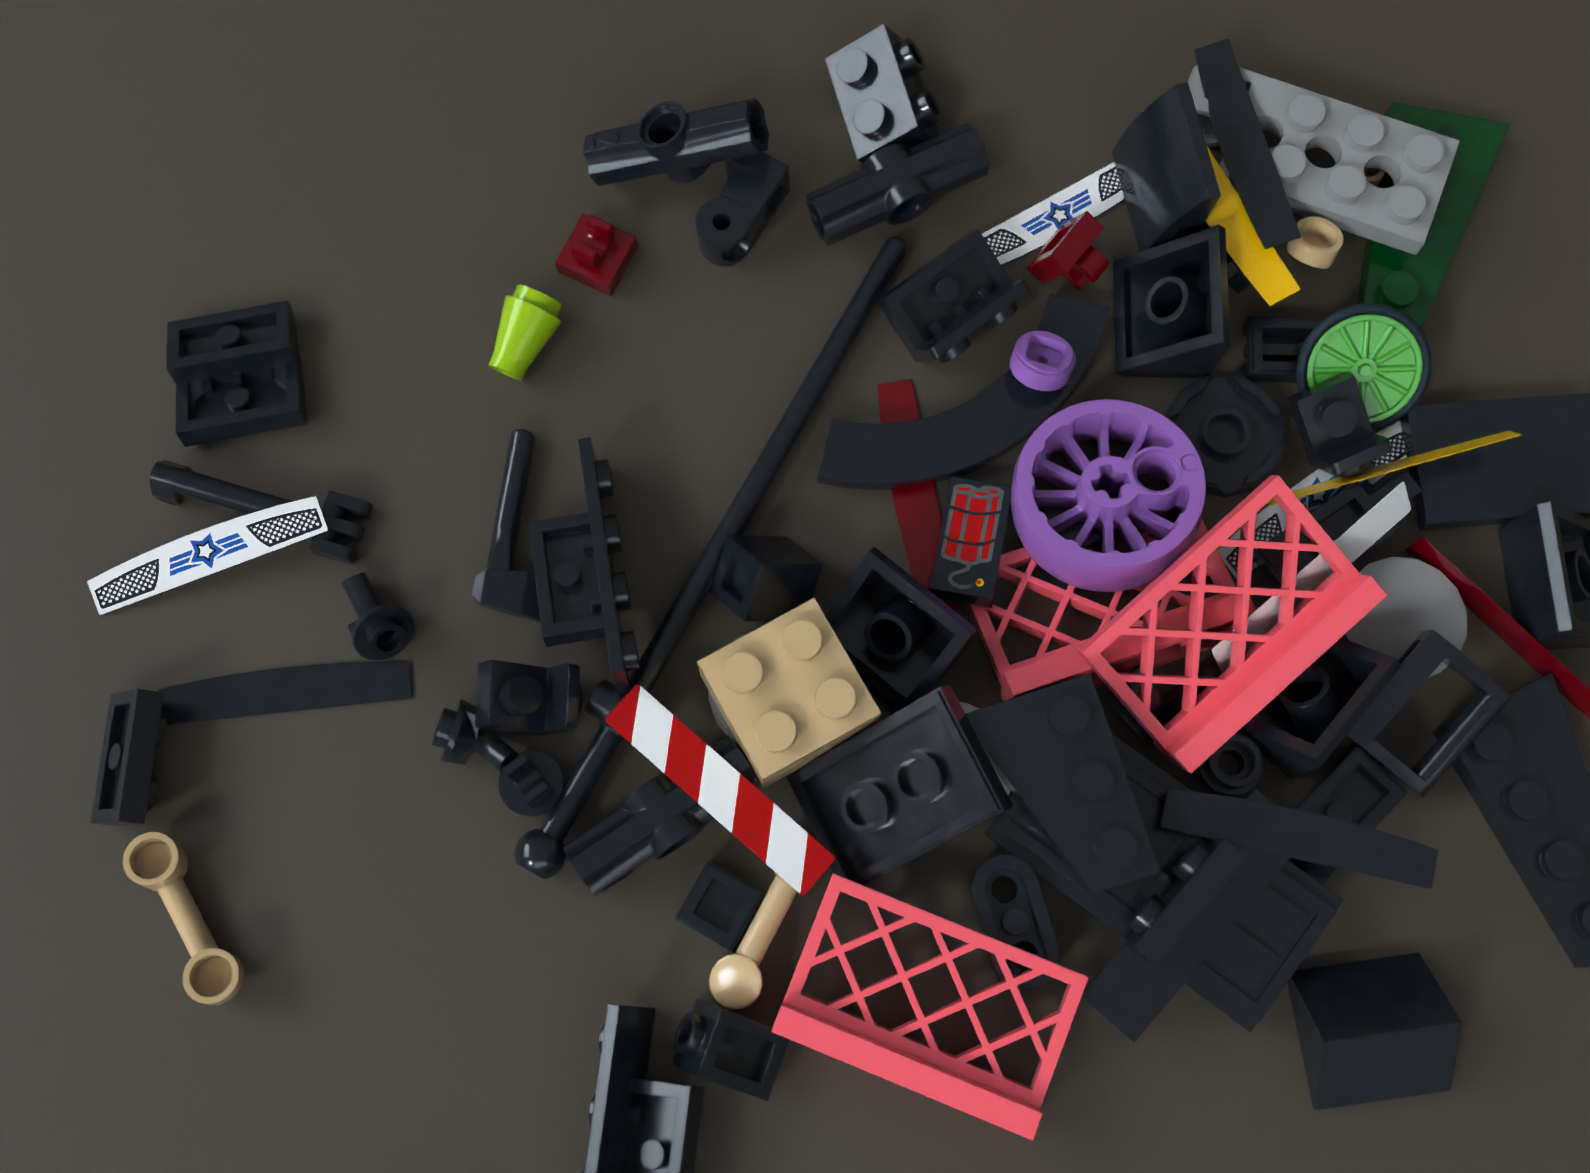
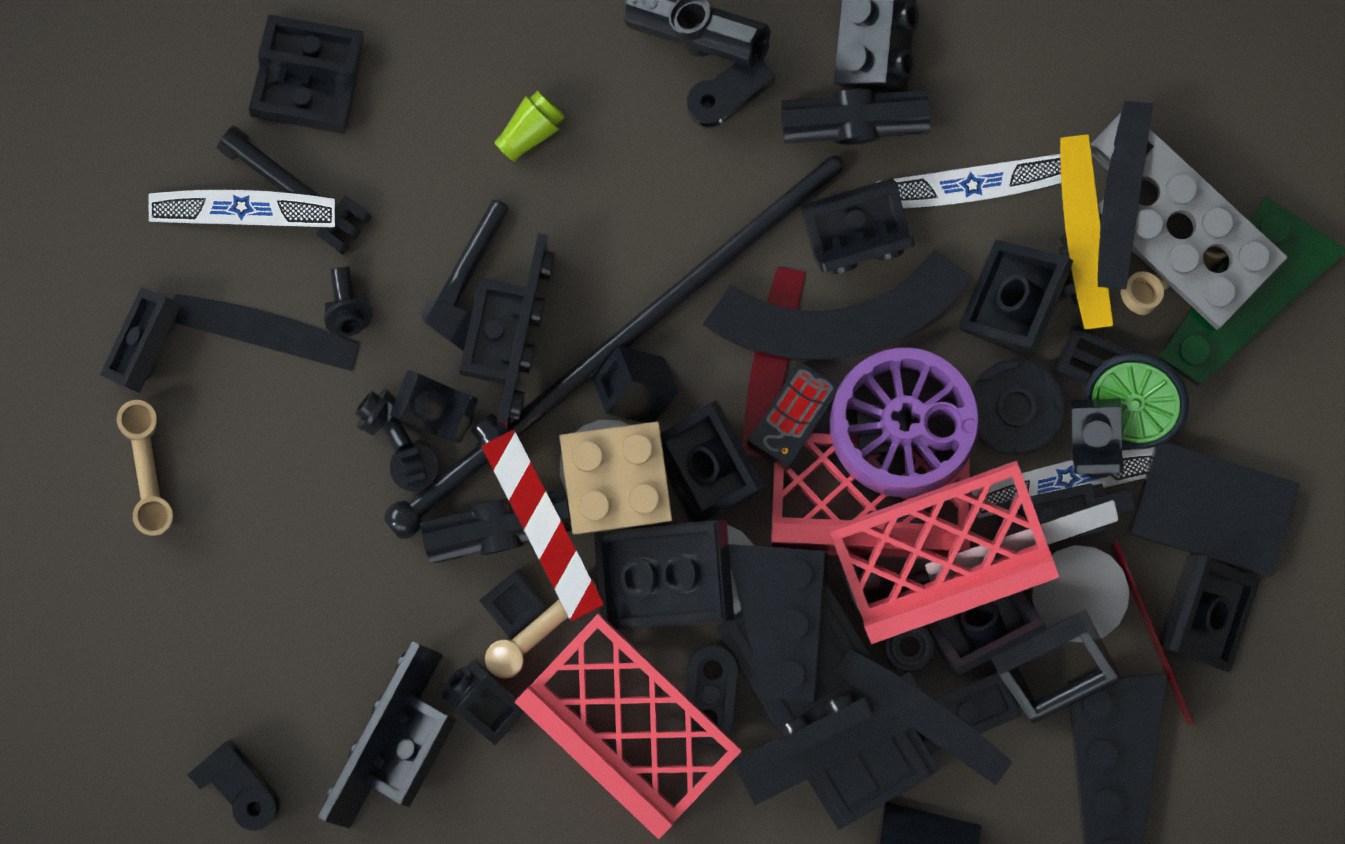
camera: 20 degrees right, 10 degrees up
(596, 254) = (607, 82): dark red tile -> none
(1042, 360) = (901, 303): medium lavender tile -> none
(1070, 253) = (960, 224): dark red tile -> none
(1166, 169) = (1053, 194): black slope -> none
(1402, 463) = (1121, 482): yellow sticker -> none

